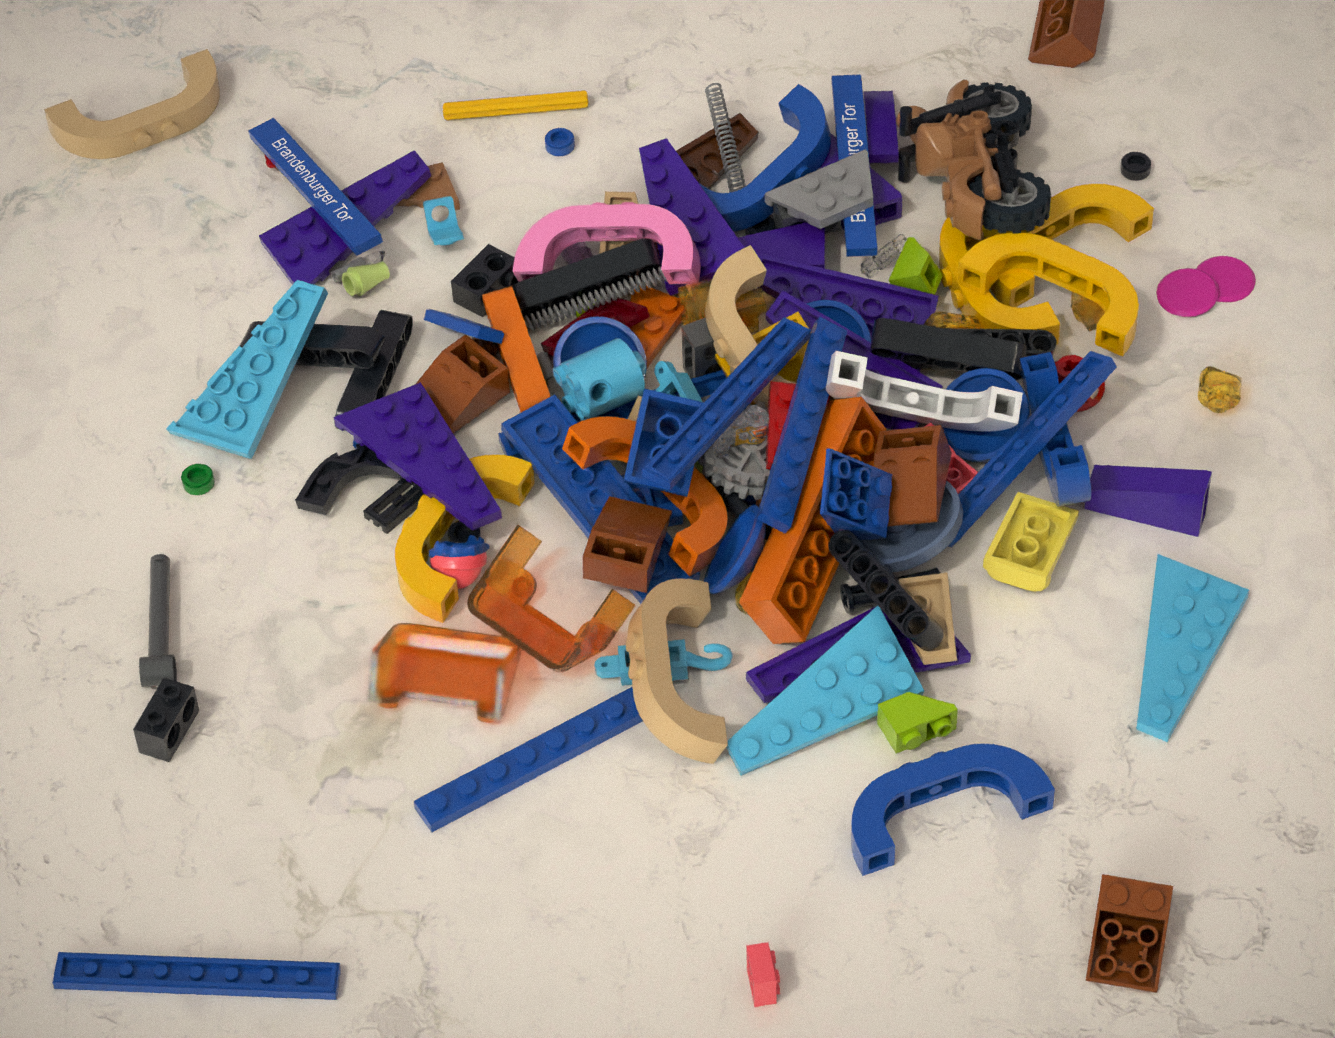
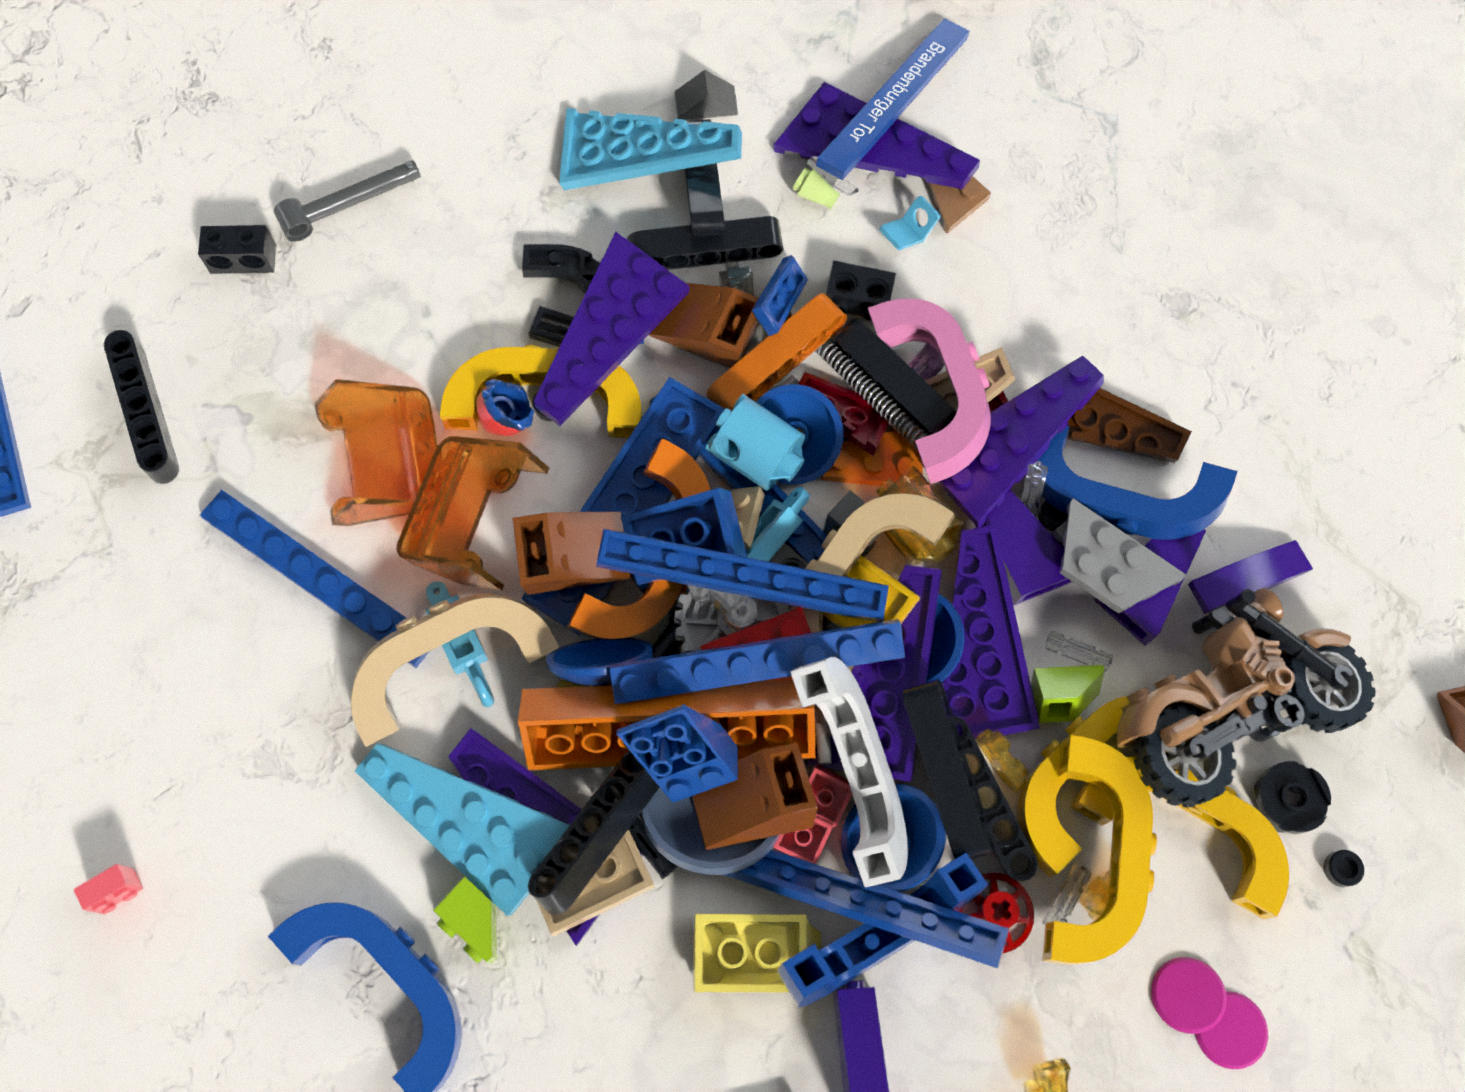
camera: 60 degrees right, 20 degrees up
(197, 479) = (524, 158): green tile -> none
(219, 328) = (705, 98): none -> dark grey slope
(274, 838) = (147, 419): none -> black beam
(423, 357) = (737, 278): none -> clear smoke tile
(515, 105) = (1099, 226): yellow axle -> none
(559, 142) = (1074, 283): blue tile -> none
(726, 167) = (1189, 404): light grey piece -> none
(734, 218) = (1034, 486): none -> clear axle
(851, 139) = (1193, 559): blue tile -> none
(1052, 168) = (1272, 793): none -> black plate
(1078, 333) = (1068, 894): none -> clear axle

